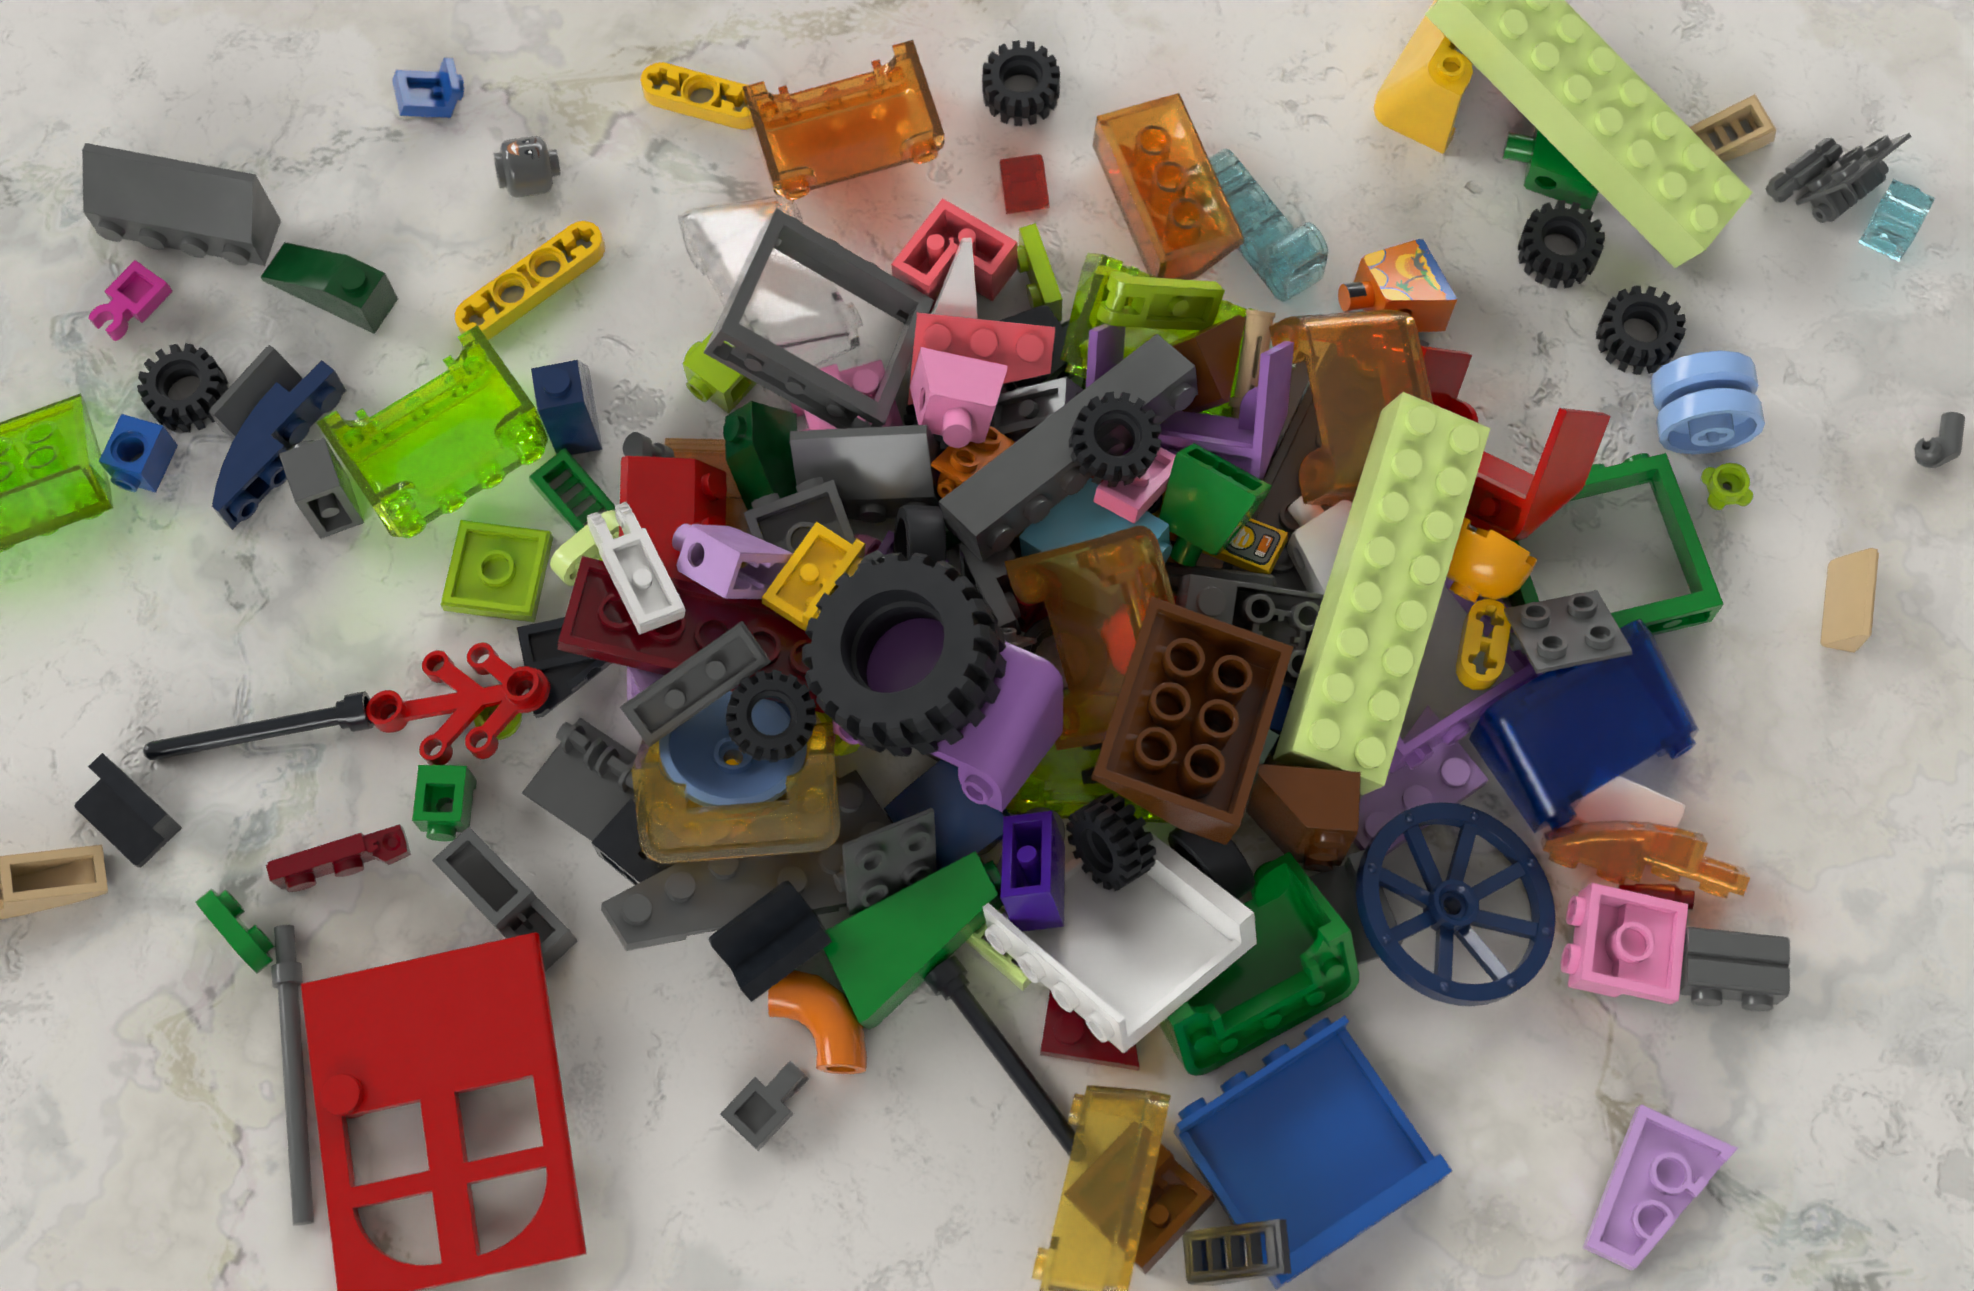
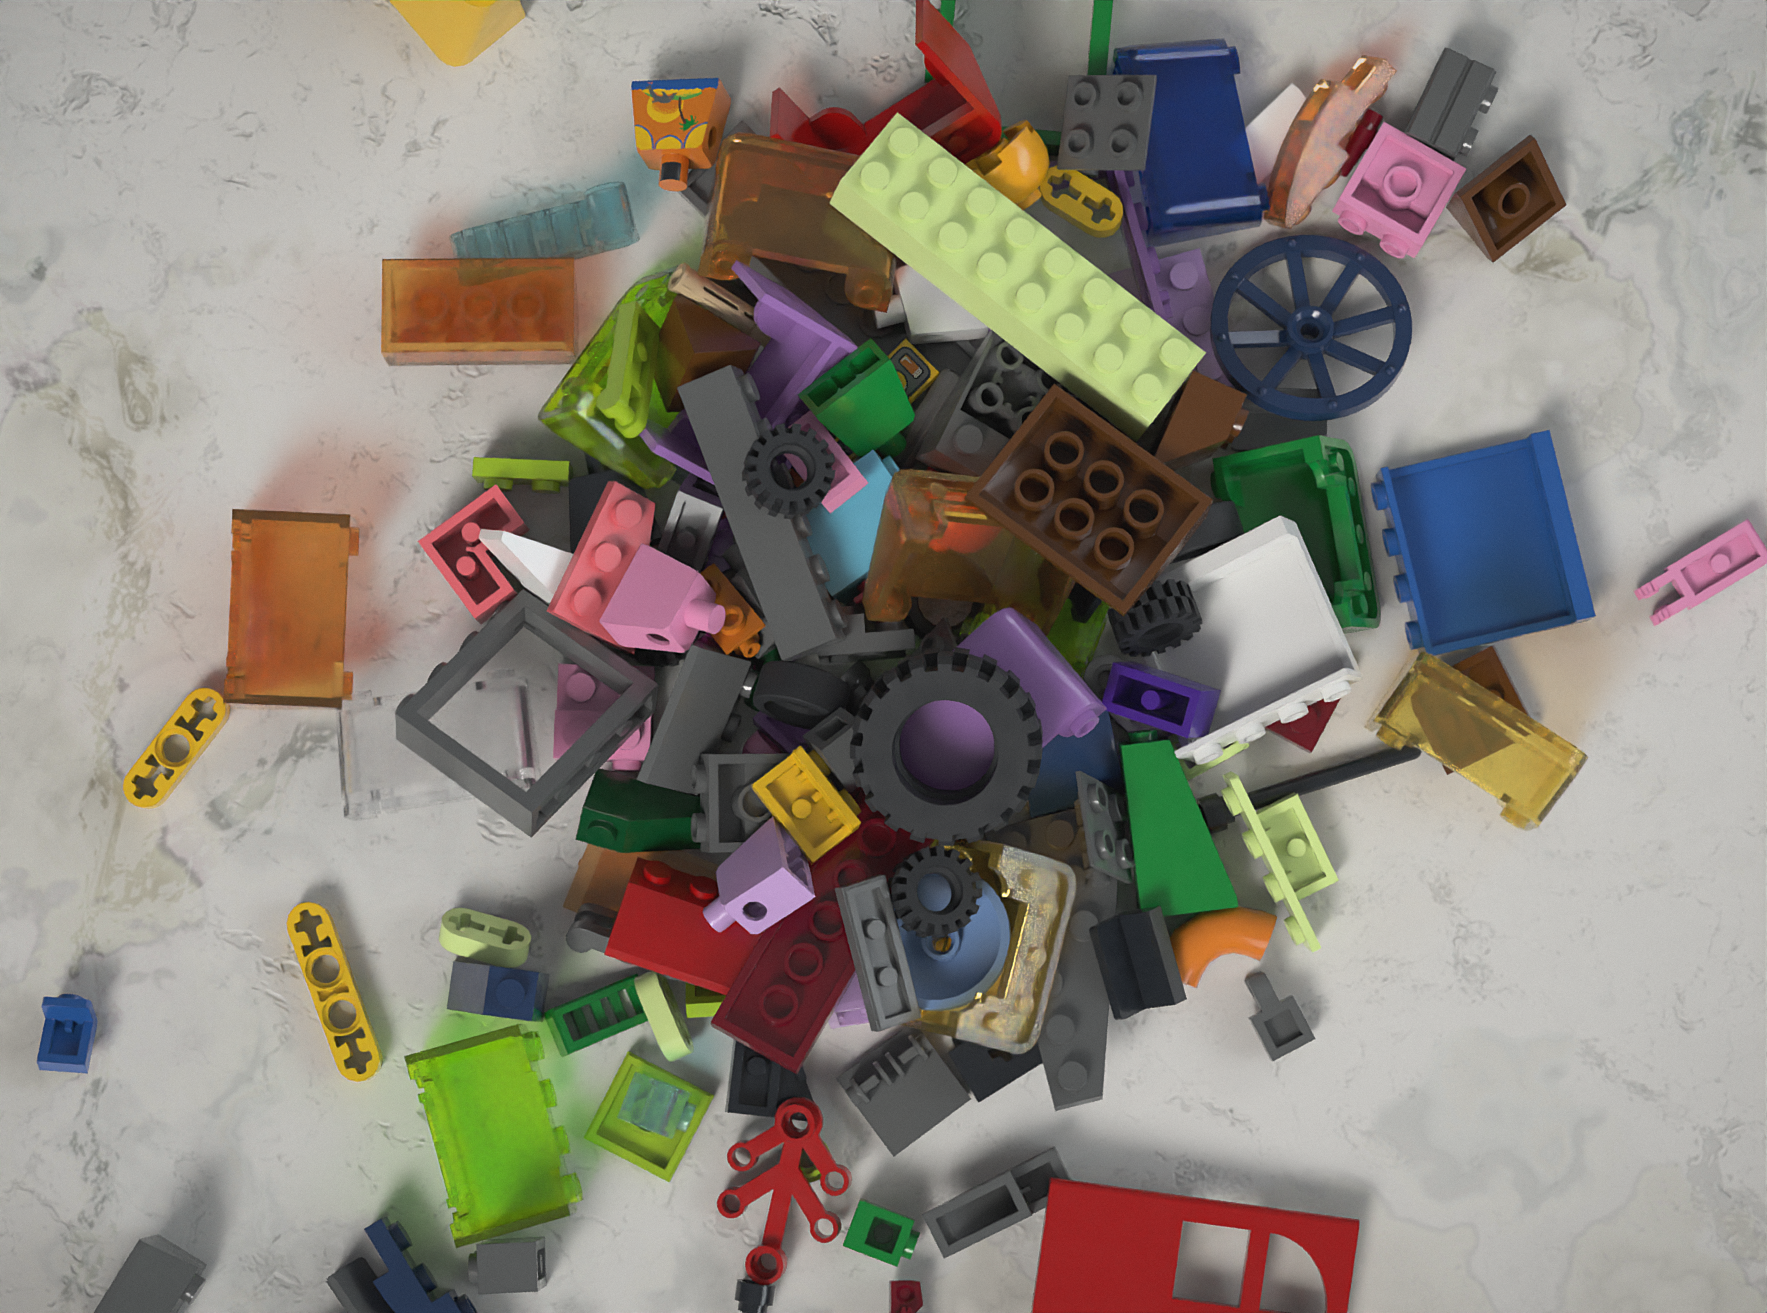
camera: 70 degrees left, 15 degrees up
(333, 284) = (260, 1201): dark green slope -> none
(503, 561) = (657, 1106): none -> clear light blue brick
(526, 166) = (202, 957): dark grey head -> none
(614, 379) = (484, 937): none -> yellowish green beam
(637, 571) = (747, 973): white hinge -> none
(713, 380) = (509, 843): lime brick -> none
(931, 1058) = (1289, 850): none -> yellowish green bracket
(1020, 62) = (269, 392): black tyre -> none
(1023, 183) = (410, 451): clear red slope -> none
(1207, 1258) = (1546, 671): black slope -> none
(1651, 1185) = (1610, 261): lavender wing -> none
(1668, 1054) = (1508, 200): none -> reddish brown slope

